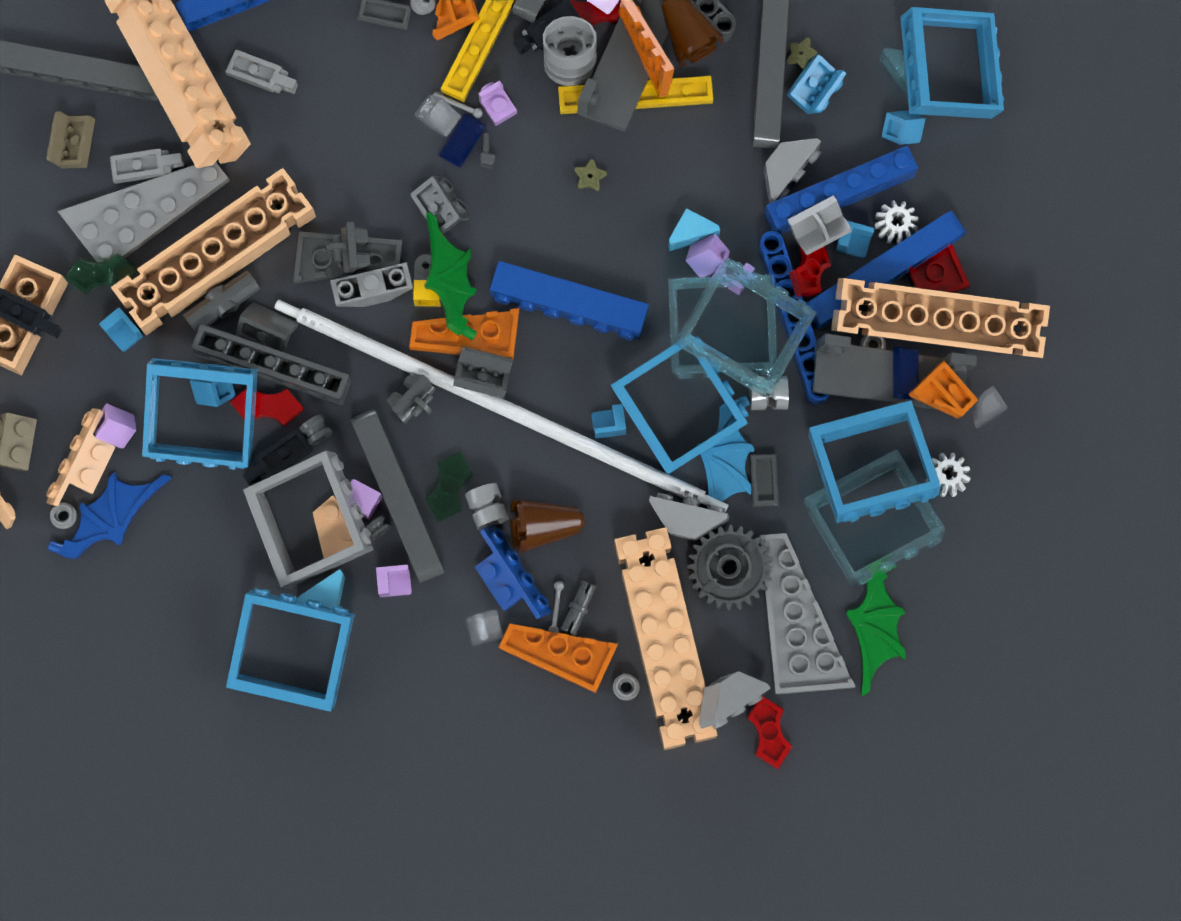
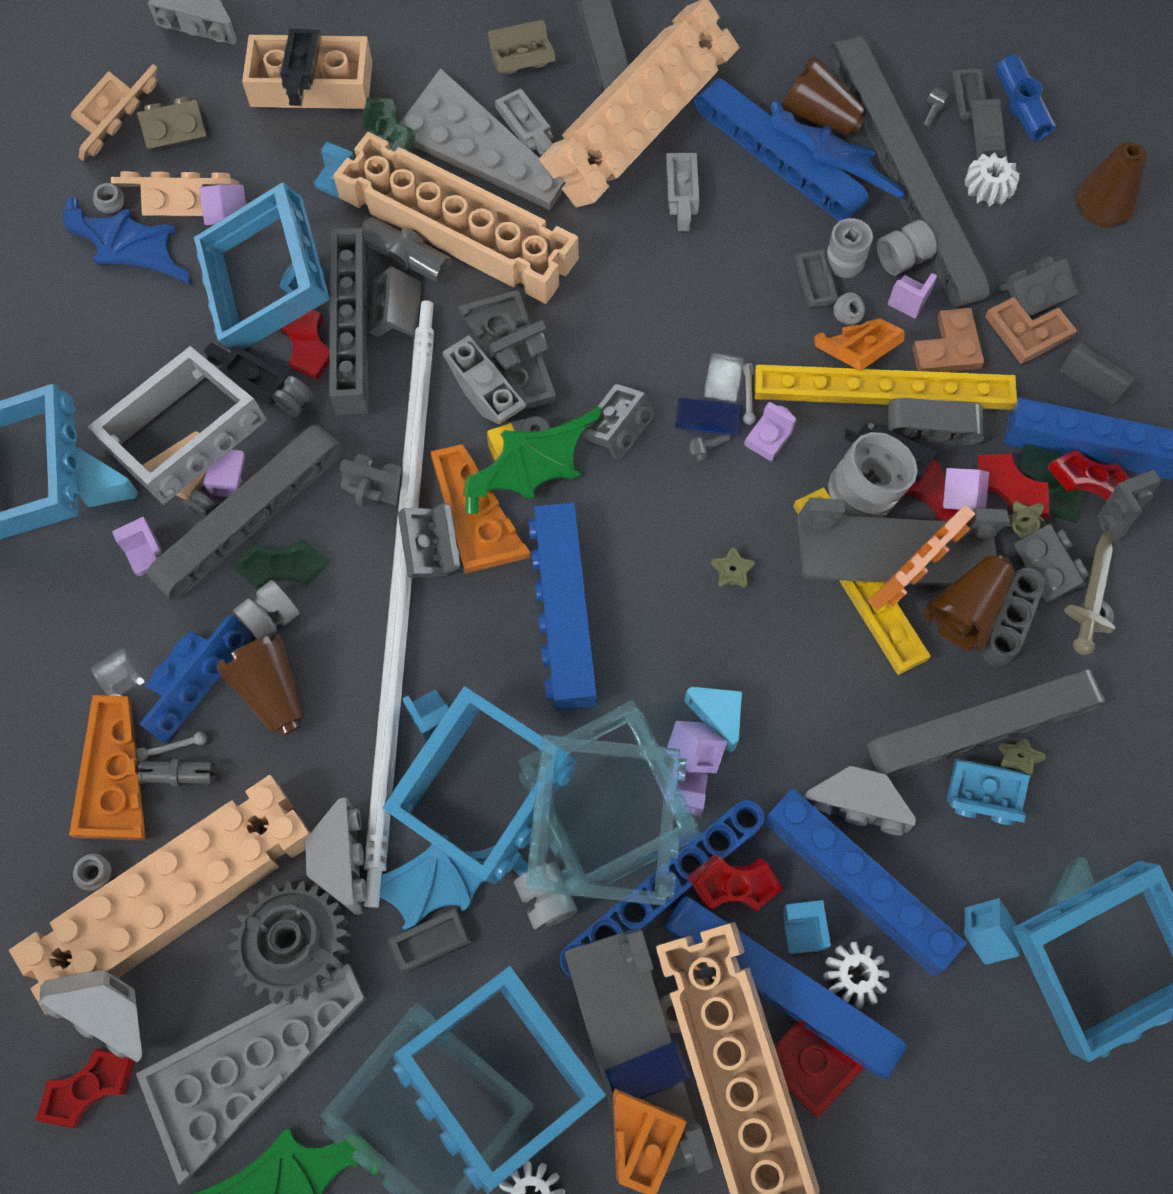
camera: 70 degrees right, 10 degrees down
(819, 225) = (798, 868): light grey panel -> none

